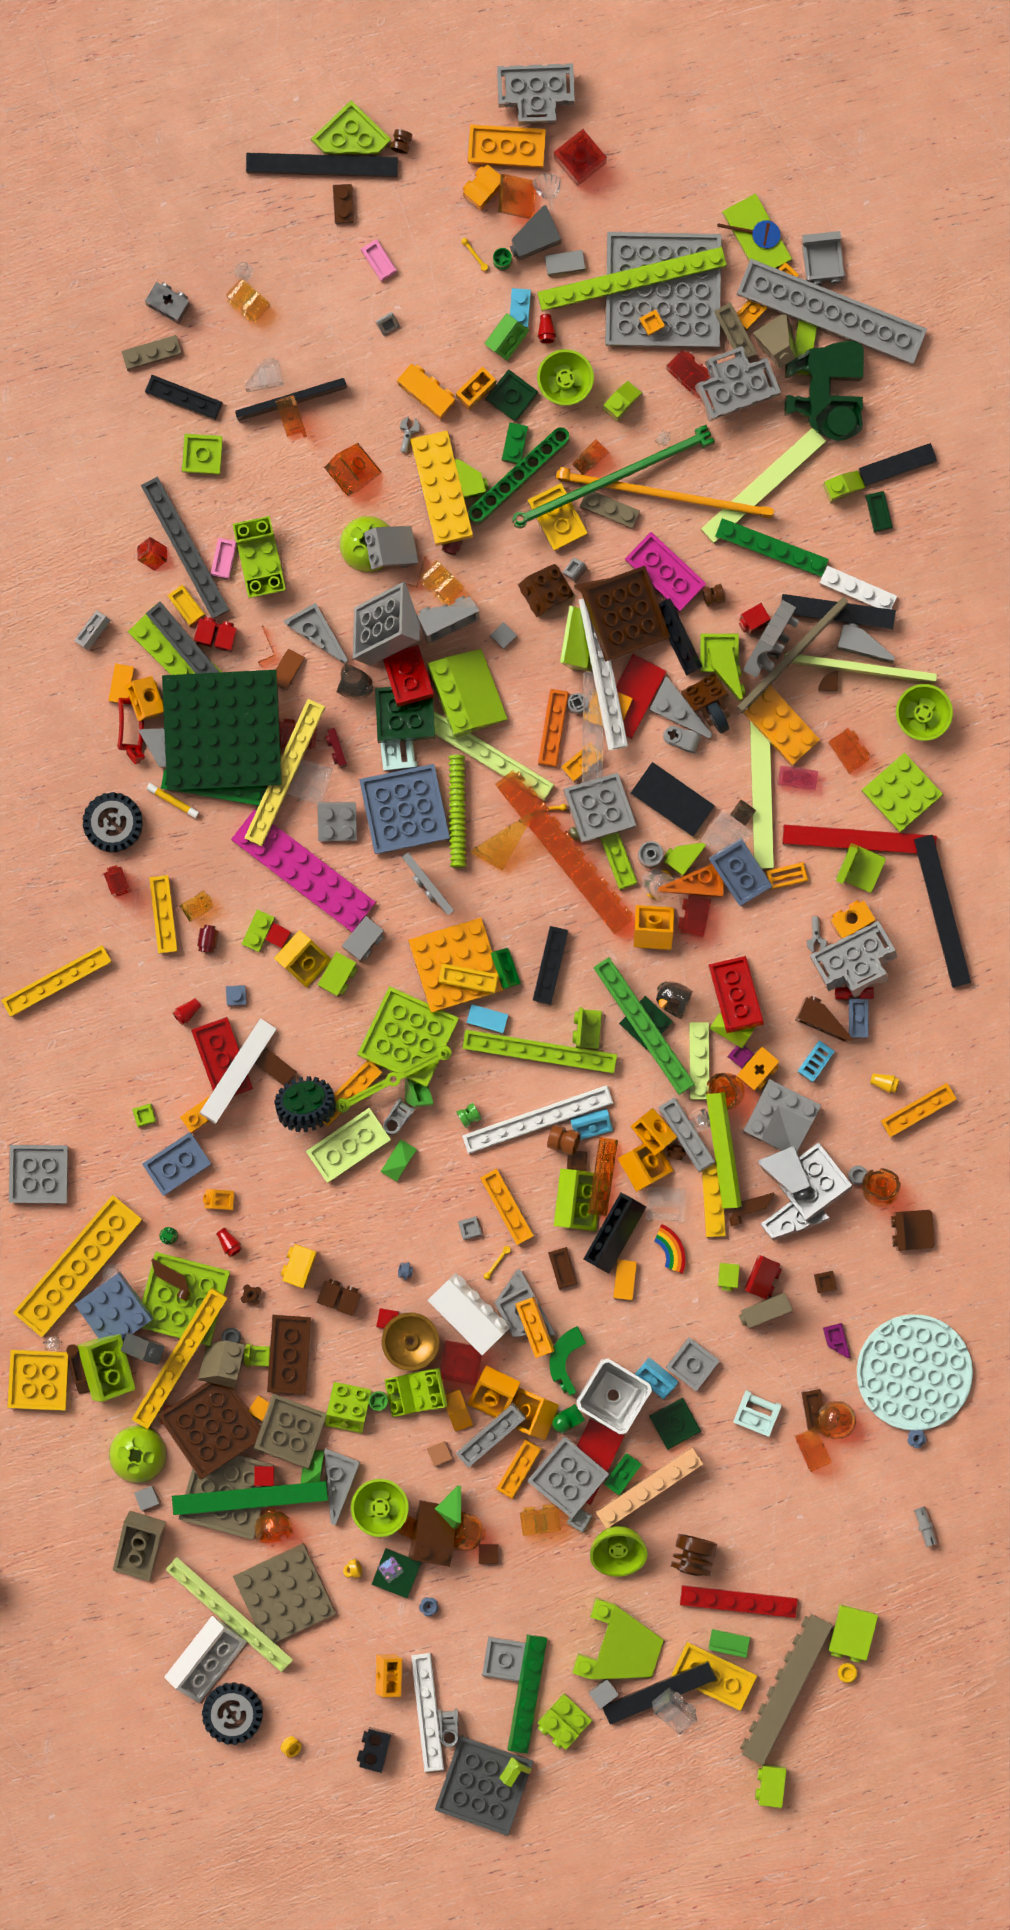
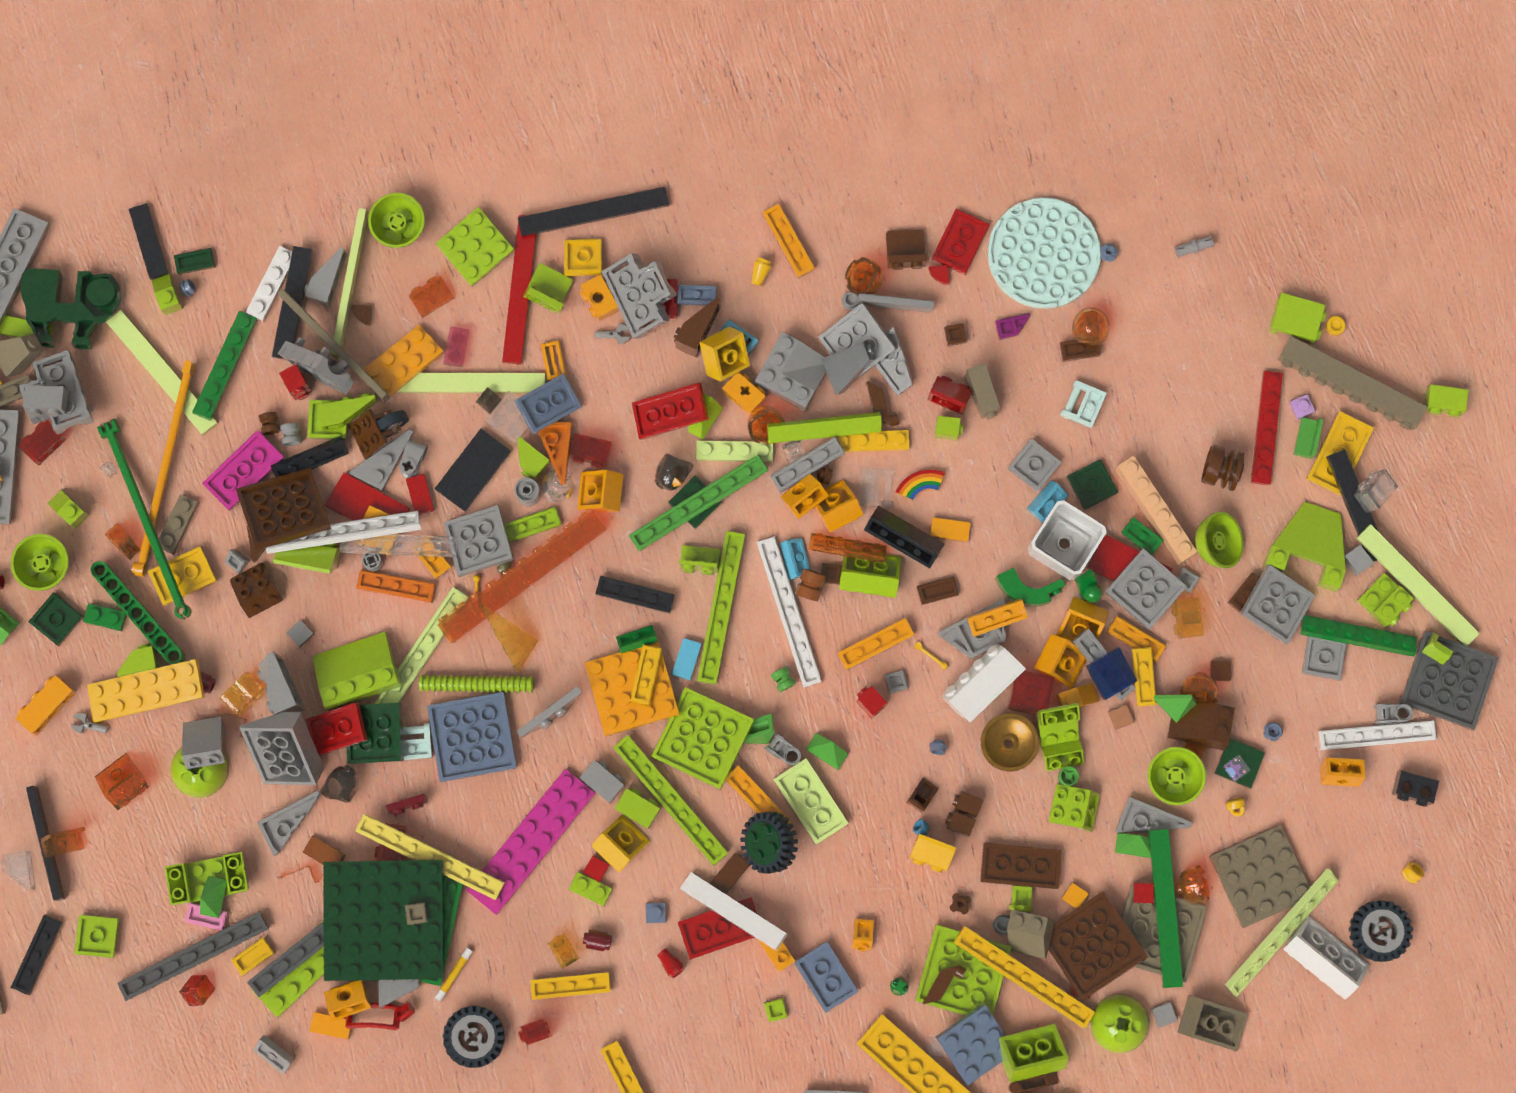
camera: 90 degrees left, 5 degrees down
(143, 1348) = (1015, 1013): dark grey slope -> none
(225, 636) = (280, 935): red piece -> none
(228, 761) = (416, 913): none -> dark tan tile
(228, 1242) = (907, 925): red cone -> none
(242, 564) = (213, 896): none -> bright green slope
(290, 1431) = (1098, 866): dark tan plate -> none
(310, 782) = (441, 831): clear plate -> none
(324, 1254) = (921, 827): none -> dark azure hinge
(337, 821) = (481, 805): light grey plate -> none
(346, 1006) = (670, 800): none -> lime plate
(357, 1256) = (922, 795): none -> reddish brown slope
(385, 1316) = (984, 768): red plate -> none
(443, 1052) = (721, 701): lime piece -> none
(447, 1202) = (871, 701): none -> red brick
(476, 388) = (45, 653): light orange brick -> none
(480, 1476) = (1145, 676): none -> yellow tile
(481, 1442) = (1111, 673): none -> clear blue tile
(556, 1610) = (1277, 604): none -> light grey plate
(567, 1580) = (1240, 597): none -> reddish brown plate
(579, 1753) = (1417, 585): none -> yellowish green tile
(646, 748) = (420, 494): none -> red tile
(703, 617) = (290, 434): none -> light grey wheel
(725, 374) = (45, 400): none -> light grey brick
(740, 1055) = (730, 411): magenta tile -> none
(761, 1637) = (1302, 407): none -> lavender plate
(795, 1047) = (724, 353): none -> yellow brick
(812, 1449) = (1119, 351): clear orange panel -> none
(850, 506) = (187, 288): none -> sand blue plate
(855, 1219) = (895, 302): none -> light grey tile
(889, 1265) = (940, 273): none -> red tile
(894, 902) = (582, 257): none -> yellow tile
(923, 1286) = (960, 241): none -> red tile

